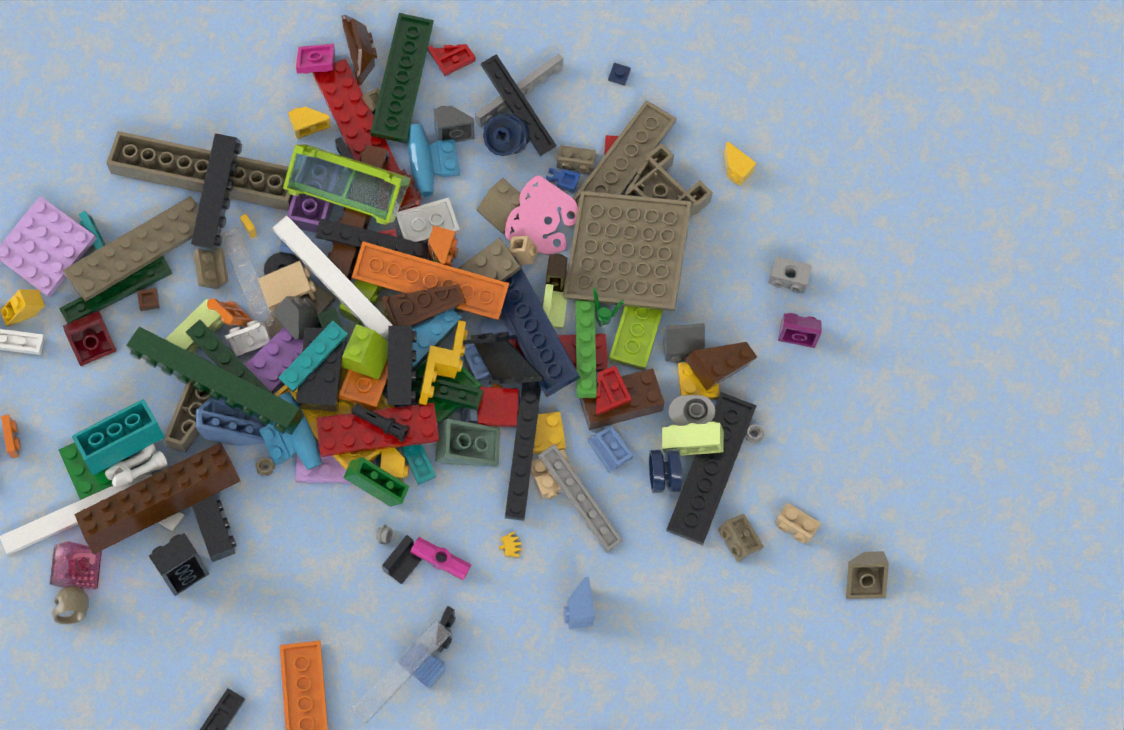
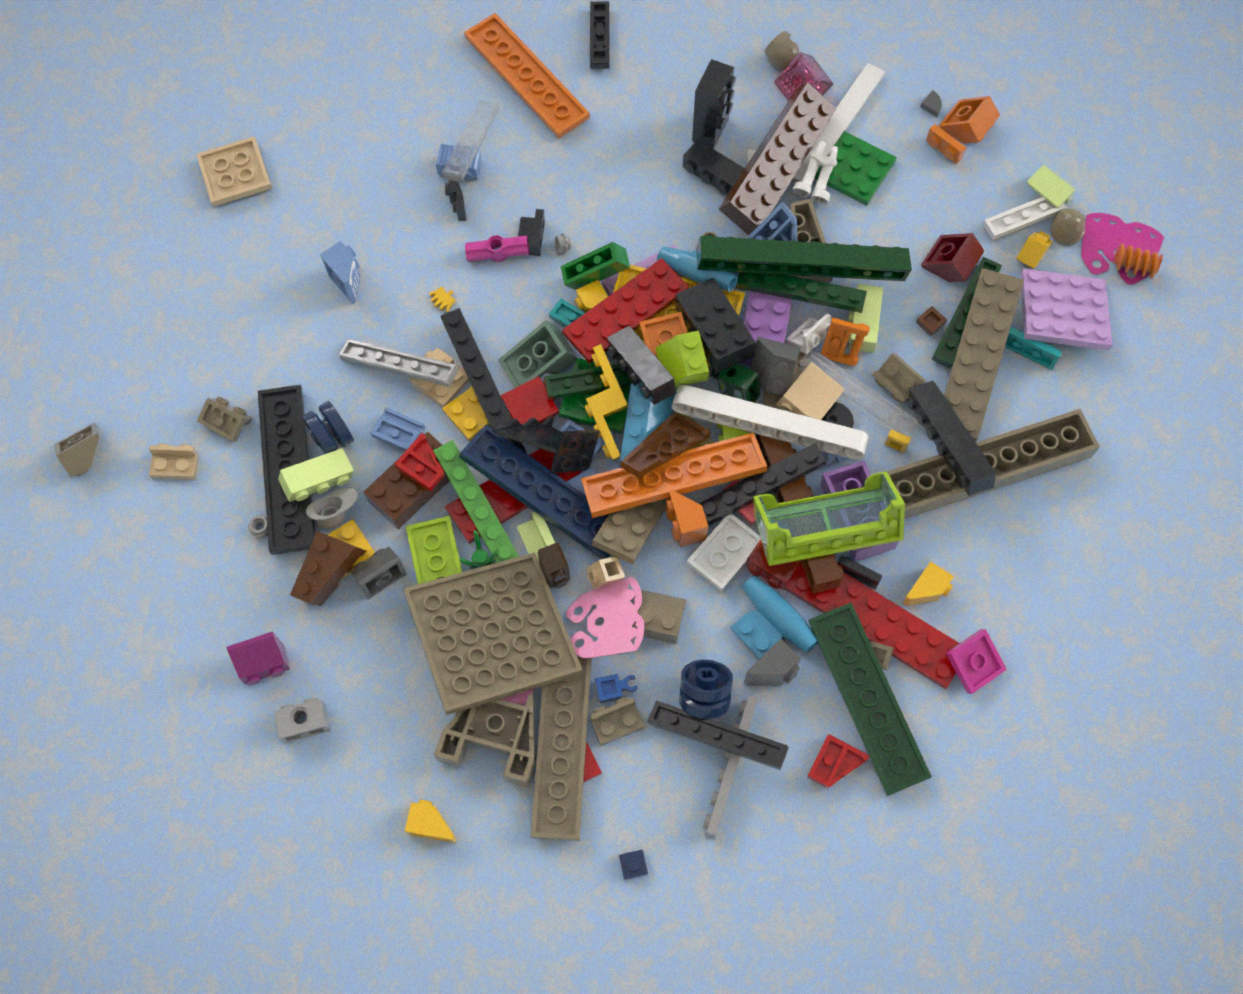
camera: 155 degrees right, 0 degrees up
(118, 436) = (849, 176): teal brick -> none
(313, 356) = (726, 317): teal plate -> none
(360, 47) = (942, 708): reddish brown wedge -> none
(388, 426) = (613, 306): black pin -> none

